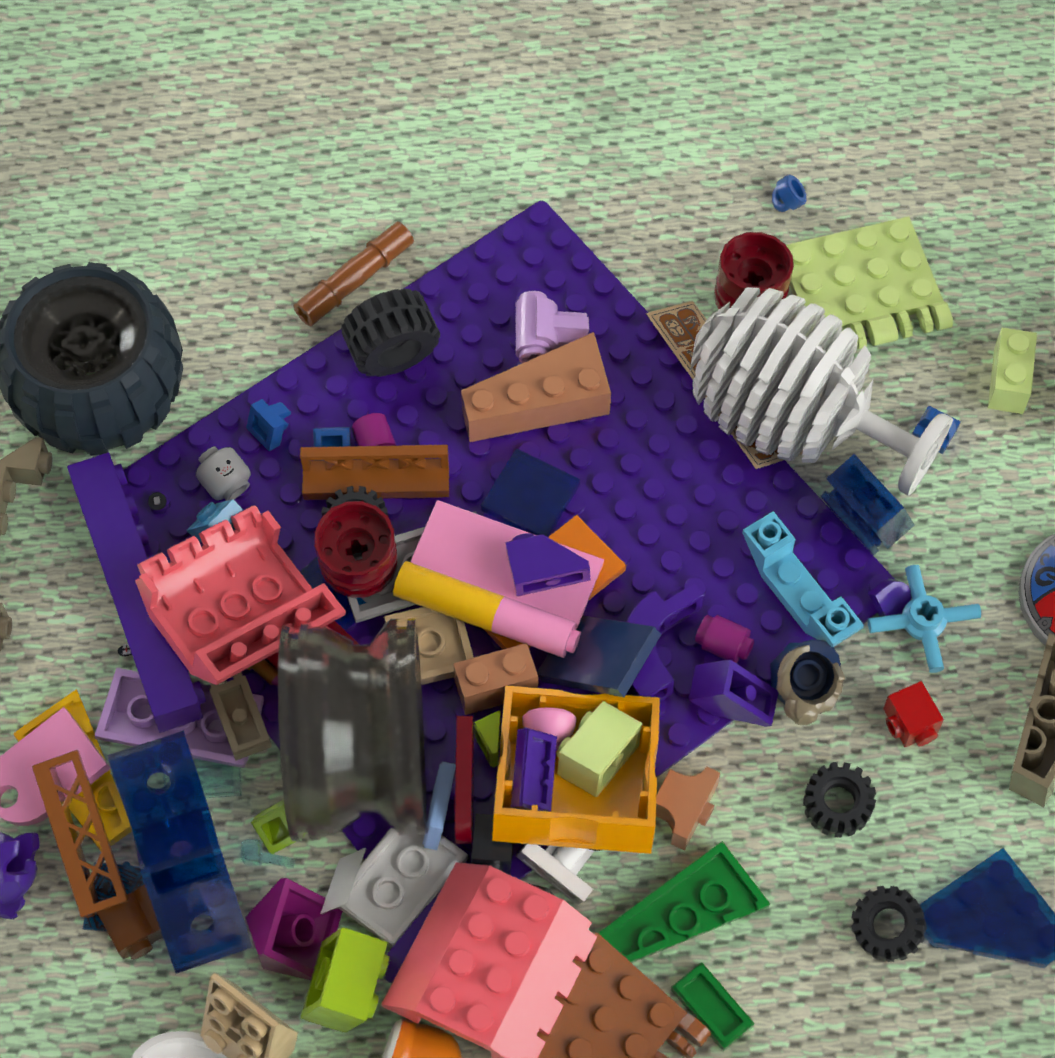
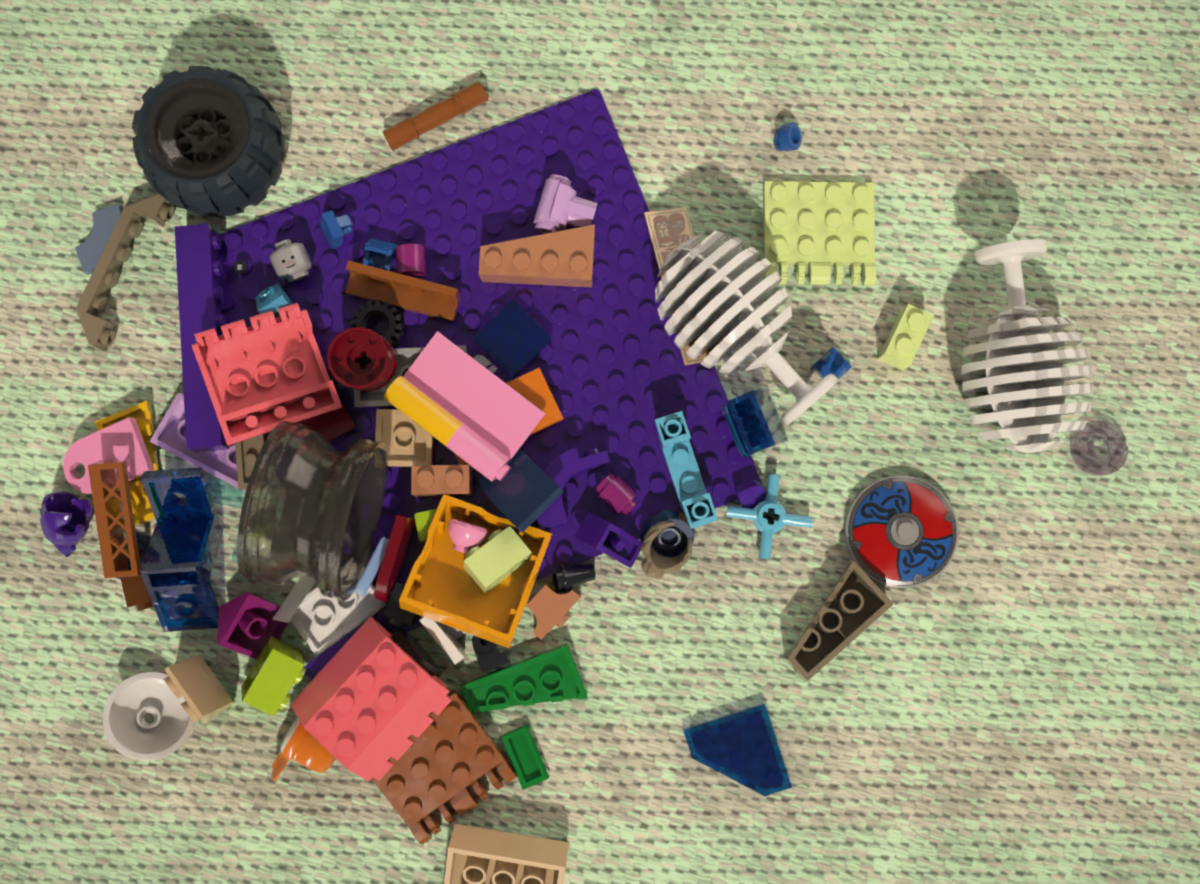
camera: 15 degrees right, 20 degrees up
(390, 332) = (441, 182): black tyre -> none
(533, 770) = (441, 569): dark purple plate -> none
(543, 564) = (495, 407): dark purple slope -> none
(620, 881) = (488, 654): none -> black leg
(694, 756) = (571, 576): none -> black cone
(752, 262) = (743, 196): dark red wheel -> none
(845, 778) = (668, 652): black tyre -> none
(884, 899) = (647, 742): black tyre -> none
(913, 715) = (734, 590): red brick -> none

